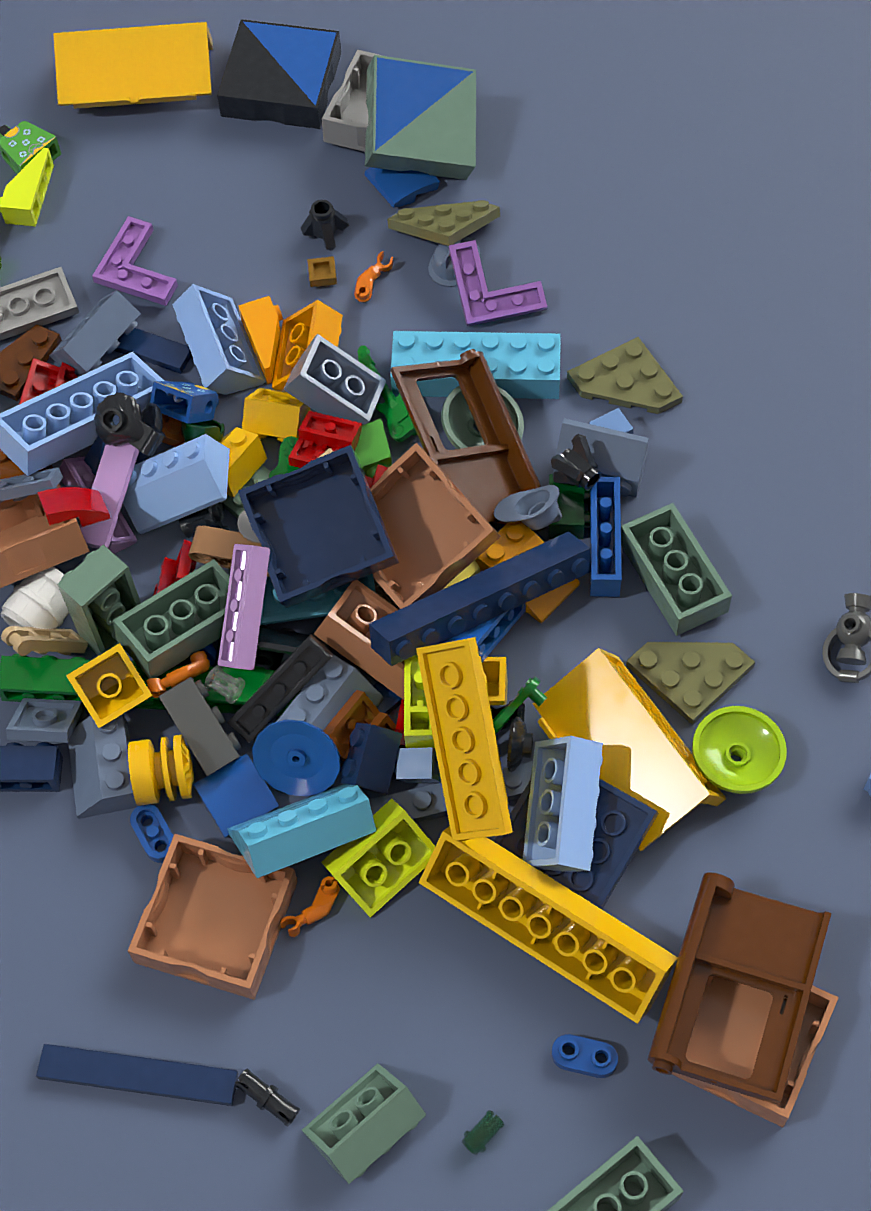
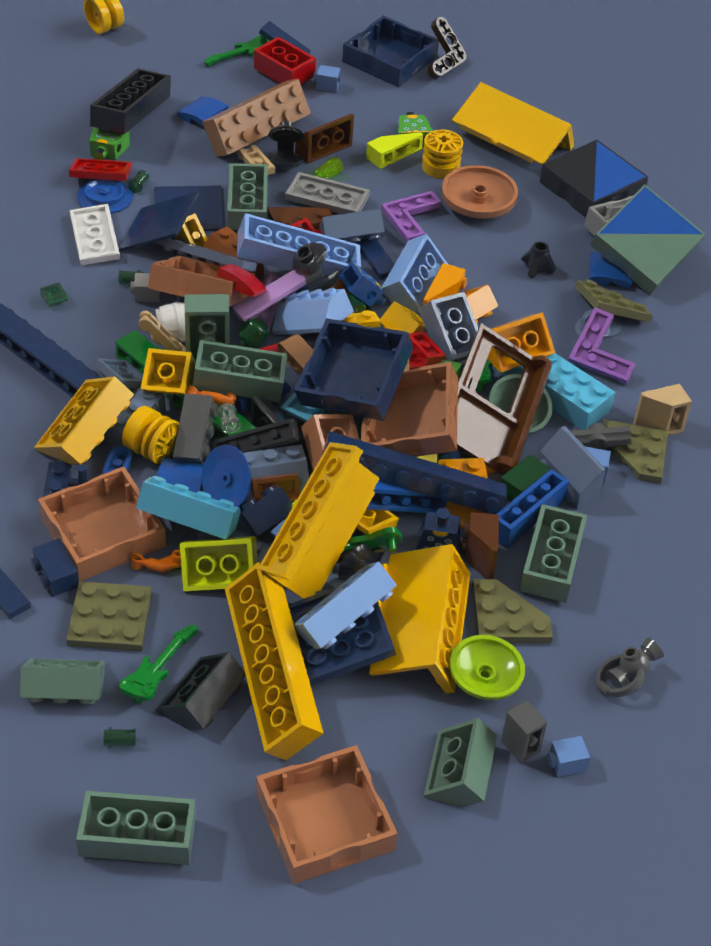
camera: 35 degrees right, 15 degrees down
(74, 816) = (85, 420): none -> yellow slope
(94, 159) = (441, 153): none -> yellow wheel
(111, 905) = (60, 478): none -> dark blue plate
(130, 549) = (253, 332): none -> dark green head
(181, 180) = (479, 191): none -> nougat dish
(221, 1009) = (55, 567): none -> dark blue brick
(244, 606) = (274, 381): lavender slope -> none
(267, 1097) = (29, 627): black pin -> none
(322, 271) = (512, 281): pearl gold plate -> none
(329, 1011) = (109, 616): none -> olive plate
(365, 281) = (527, 305): orange arm -> none
(421, 338) = (528, 334): none -> light orange slope
(446, 1056) = (144, 681): none -> green piece
(508, 1011) = (203, 691): none -> black slope
(532, 507) = (497, 460): sand blue piece -> none
(556, 638) = (440, 530): none -> dark blue torso
(576, 465) = (546, 452): black rock -> none
(583, 1059) = (219, 747): blue plate -> none
(589, 398) = (600, 437): none -> dark grey piece
(607, 616) = (481, 542): none -> reddish brown slope
(621, 316) = (663, 409): none -> tan slope
(751, 944) = (370, 755): reddish brown piece -> none
(808, 867) = (461, 764): none -> sand green slope
(835, 789) = (523, 731): none -> dark grey brick

